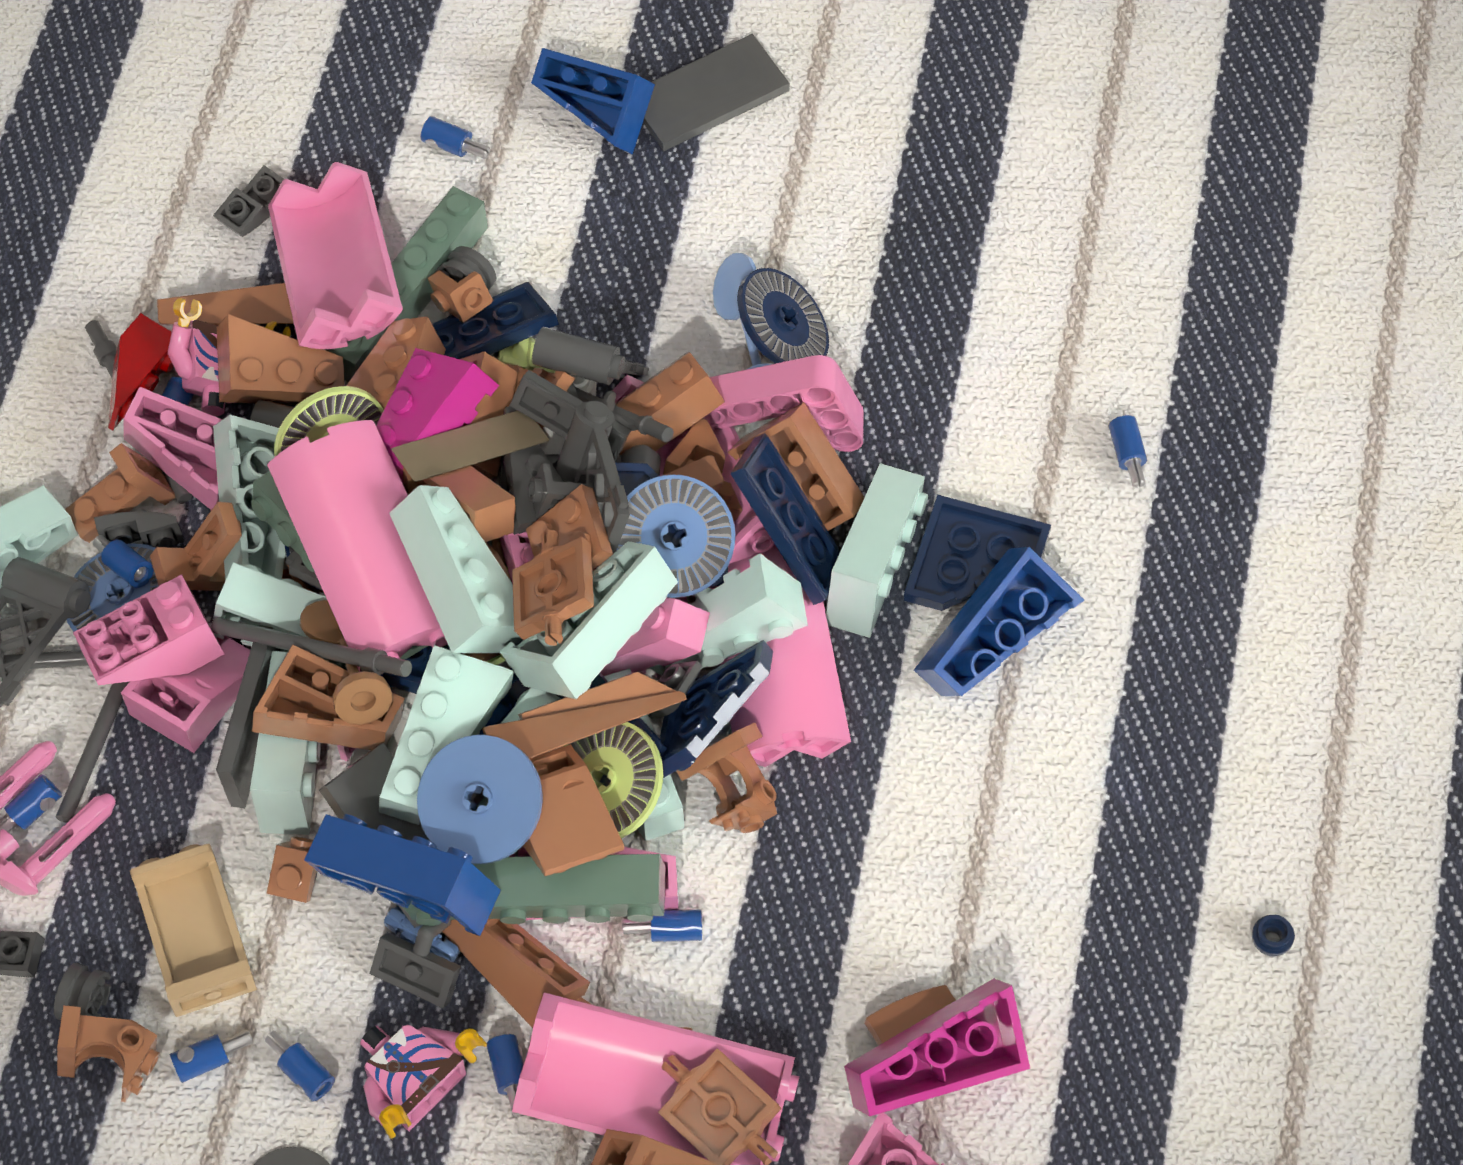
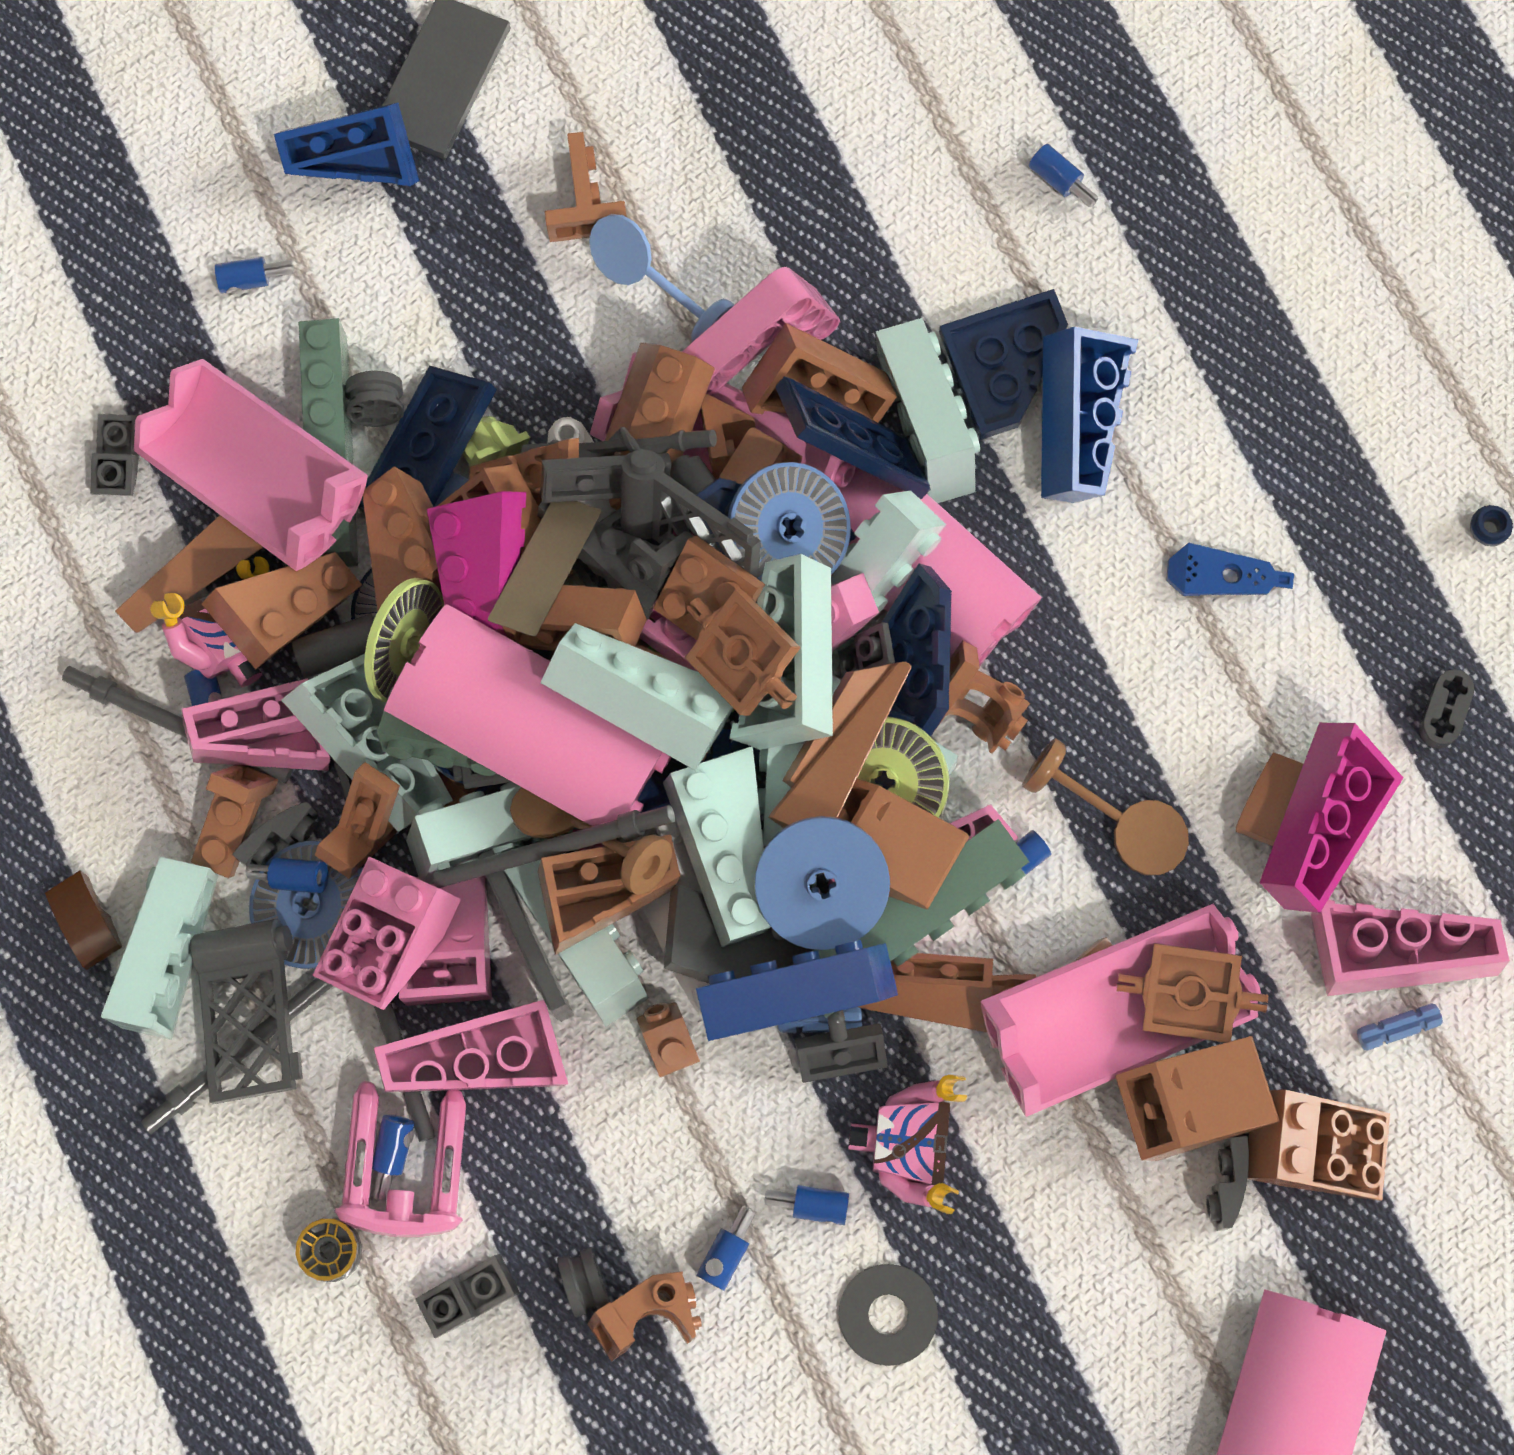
camera: 35 degrees left, 15 degrees up
(137, 363) = (145, 687): red slope -> none
(147, 776) = (485, 1053): none -> bright pink wedge
(193, 929) = (624, 1154): tan panel -> none
(460, 298) = (390, 426): nougat bracket -> none
(506, 1064) = (985, 1080): blue piece -> none
(582, 357) = (566, 410): dark grey piece -> none
(743, 234) = (579, 220): none -> nougat bracket
(781, 316) = (691, 254): piece -> none
(792, 979) = (1147, 834): none -> medium nougat piece
(1013, 813) = (1209, 573): none -> blue piece
(1113, 1042) = (1455, 712): none -> dark grey beam

